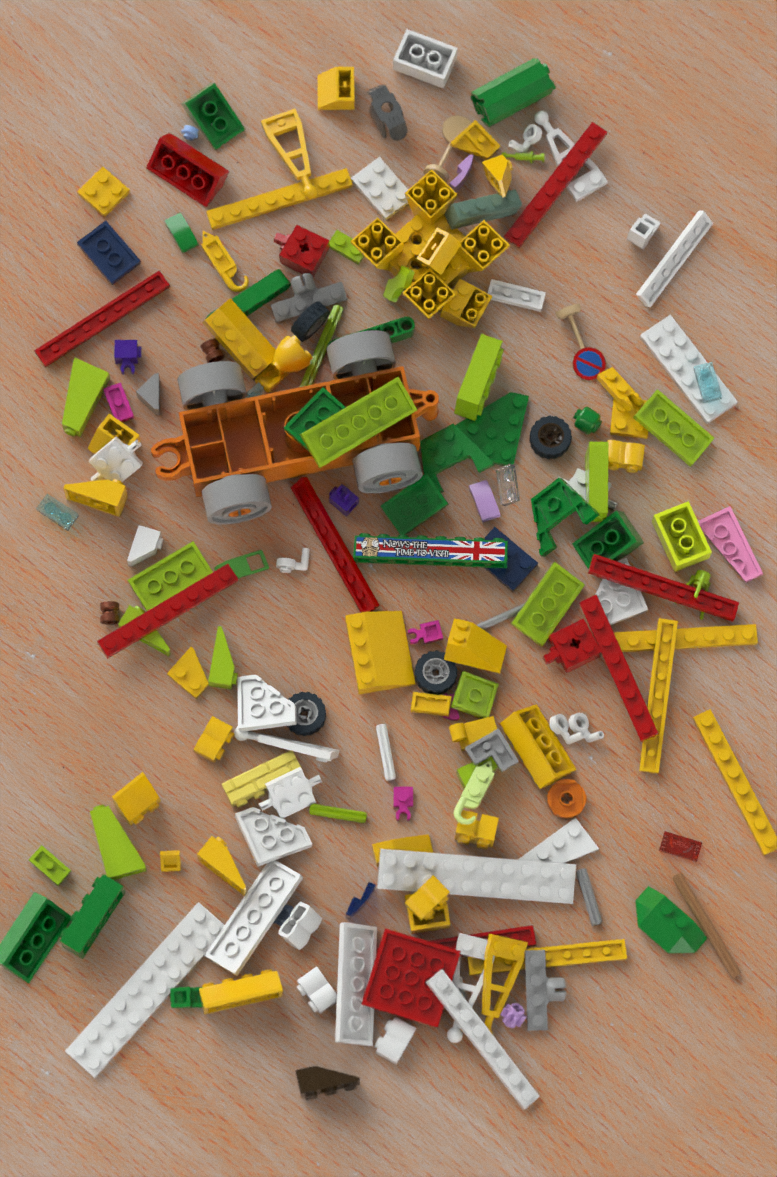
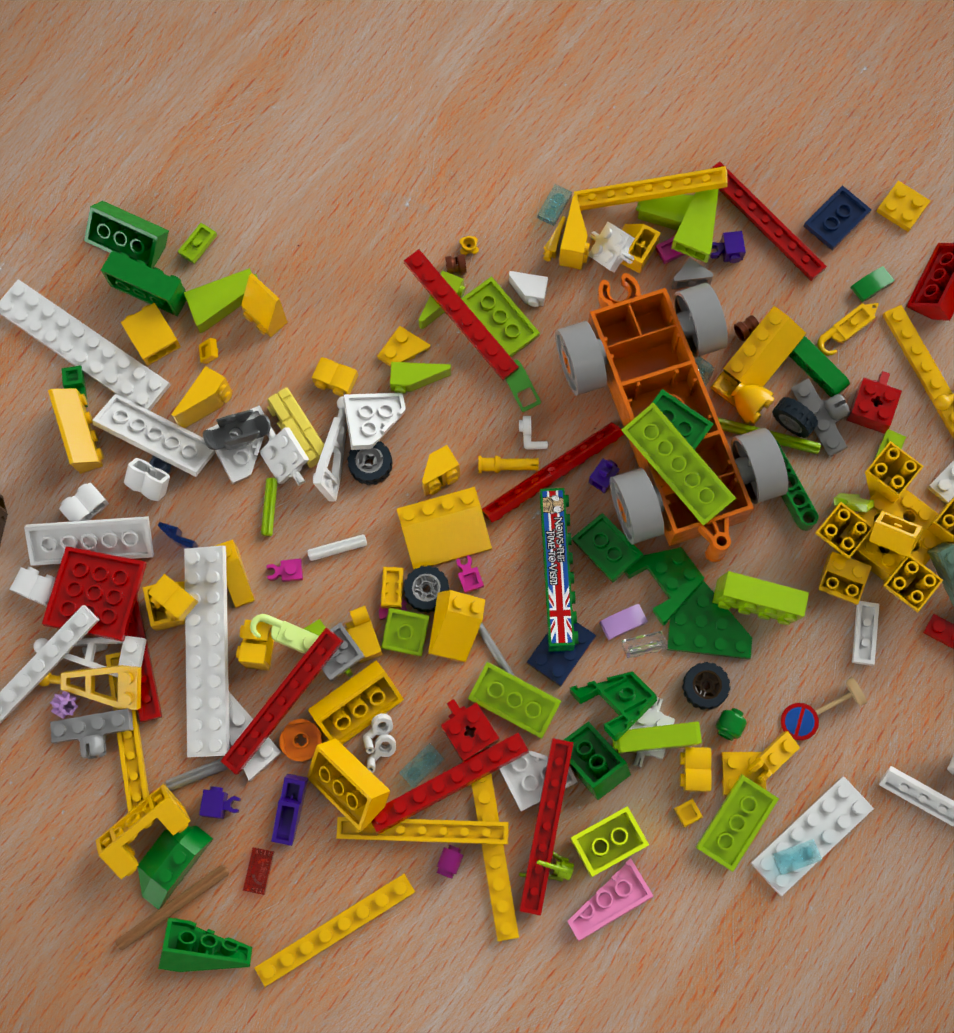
camera: 90 degrees right, 0 degrees up
(63, 416) = (652, 188): none -> yellow plate
(89, 594) = (468, 240): none -> yellow plate
(100, 519) = (552, 244): none -> yellow piece
(104, 376) = (697, 226): none -> lime slope
(144, 917) = (150, 334): none -> yellow brick
(260, 822) = (250, 429): none -> dark grey piece
(320, 595) = (497, 464): none -> yellow pin
(323, 646) = (440, 470): none -> yellow slope
(533, 806) = (281, 701): none -> red plate
(599, 692) = (421, 765): none -> clear light blue plate
(612, 756) = (347, 783): none -> yellow slope
(617, 879) = (215, 803): none -> dark purple brick
(628, 813) = (289, 809): none -> dark purple slope
(641, 959) = (114, 844): none -> yellow plate
(660, 469) = (688, 813): none -> yellow tile
(686, 676) = (449, 861): none -> magenta brick
(746, 905) = (194, 949): none -> green wedge

